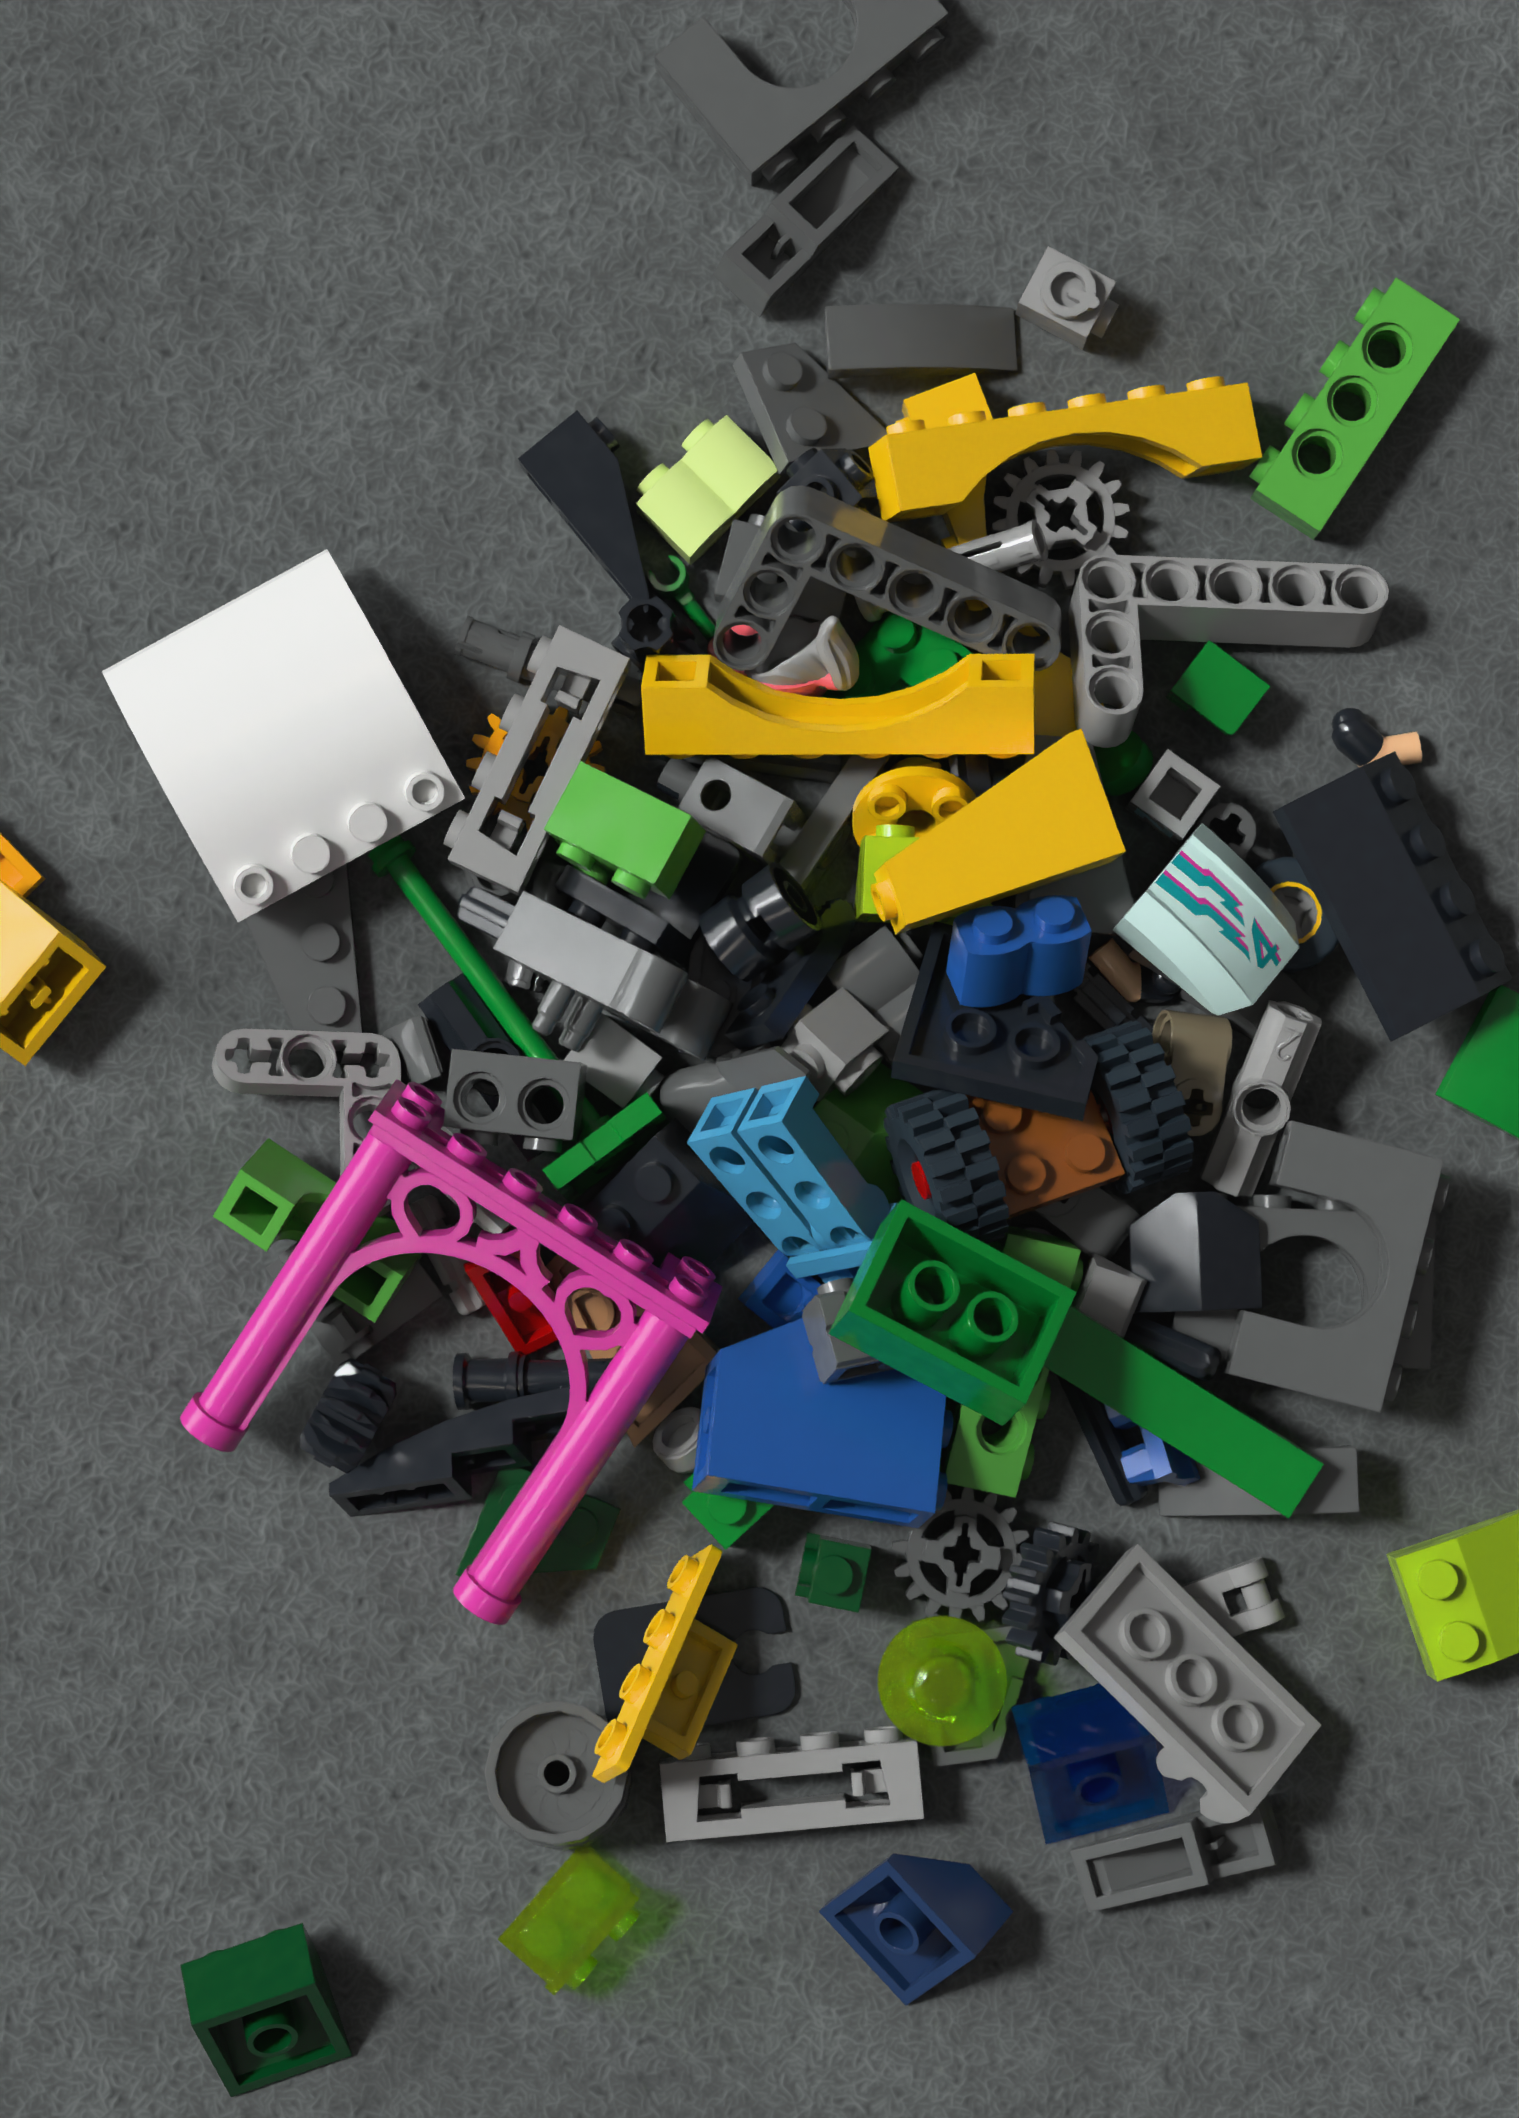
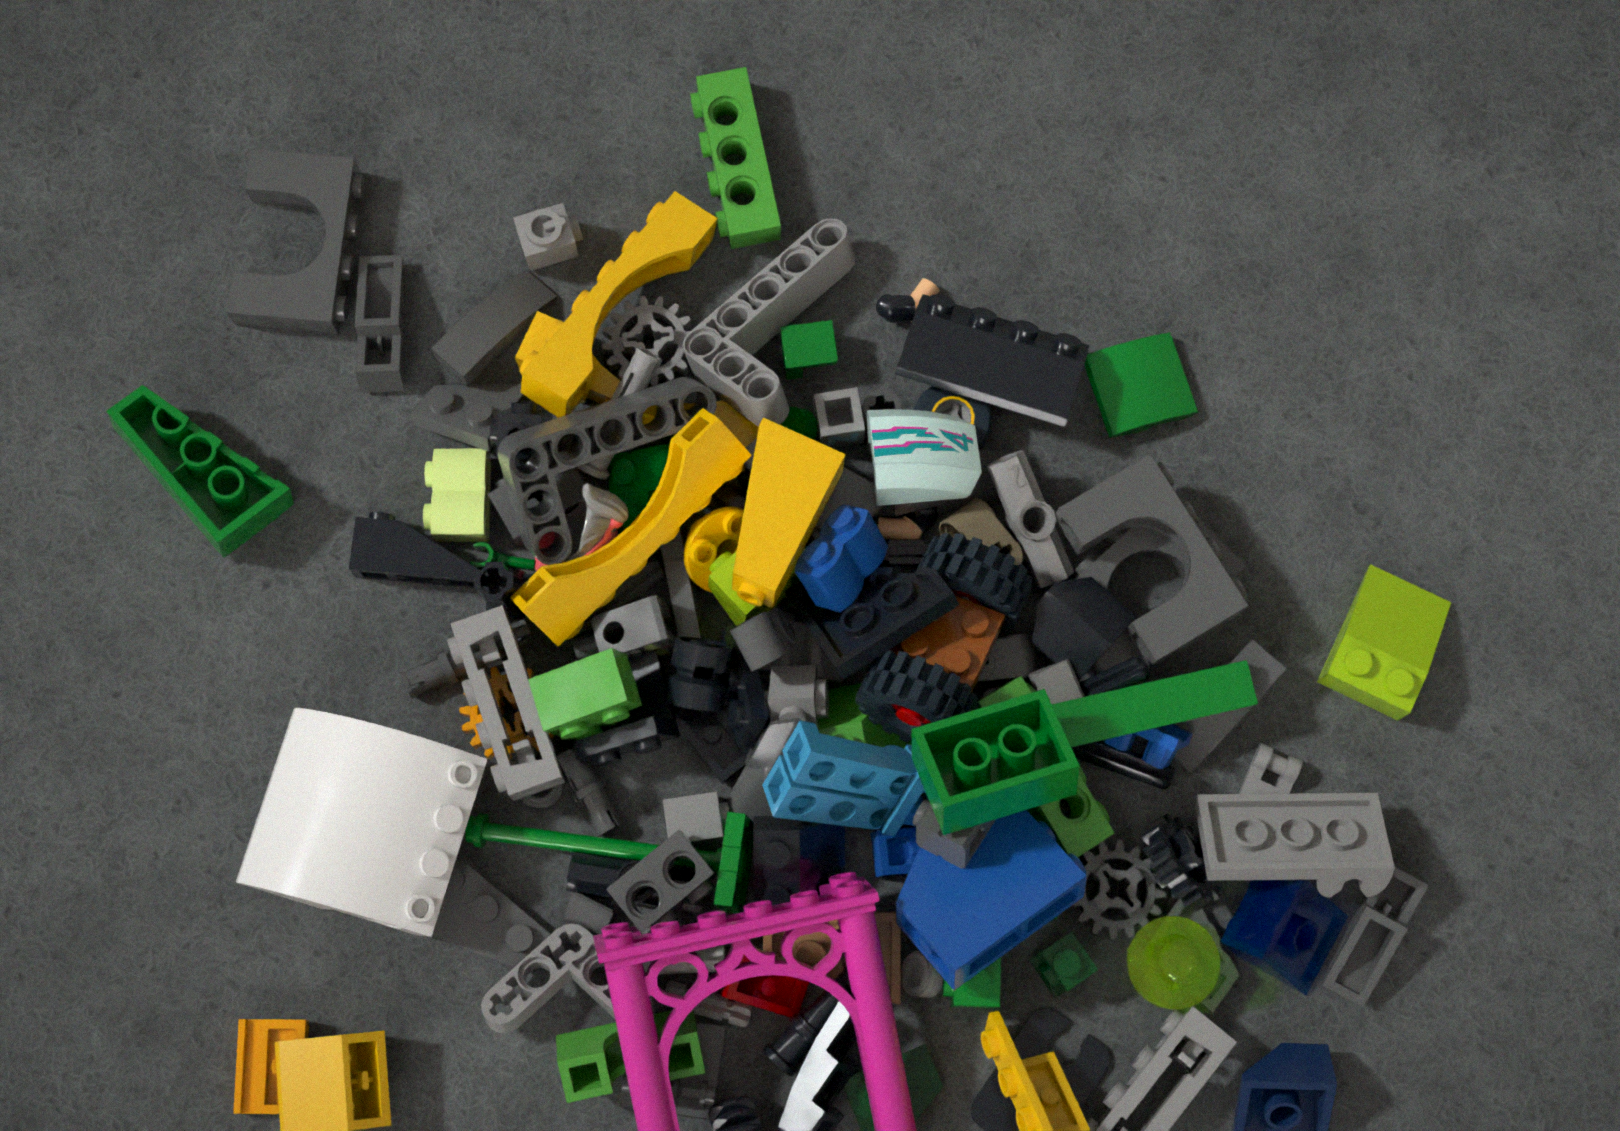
camera: 50 degrees left, 10 degrees down
(467, 201) = (206, 478): none -> green wedge
(598, 971) = (643, 778): piece -> none
(858, 955) = (764, 637): none -> dark grey piece

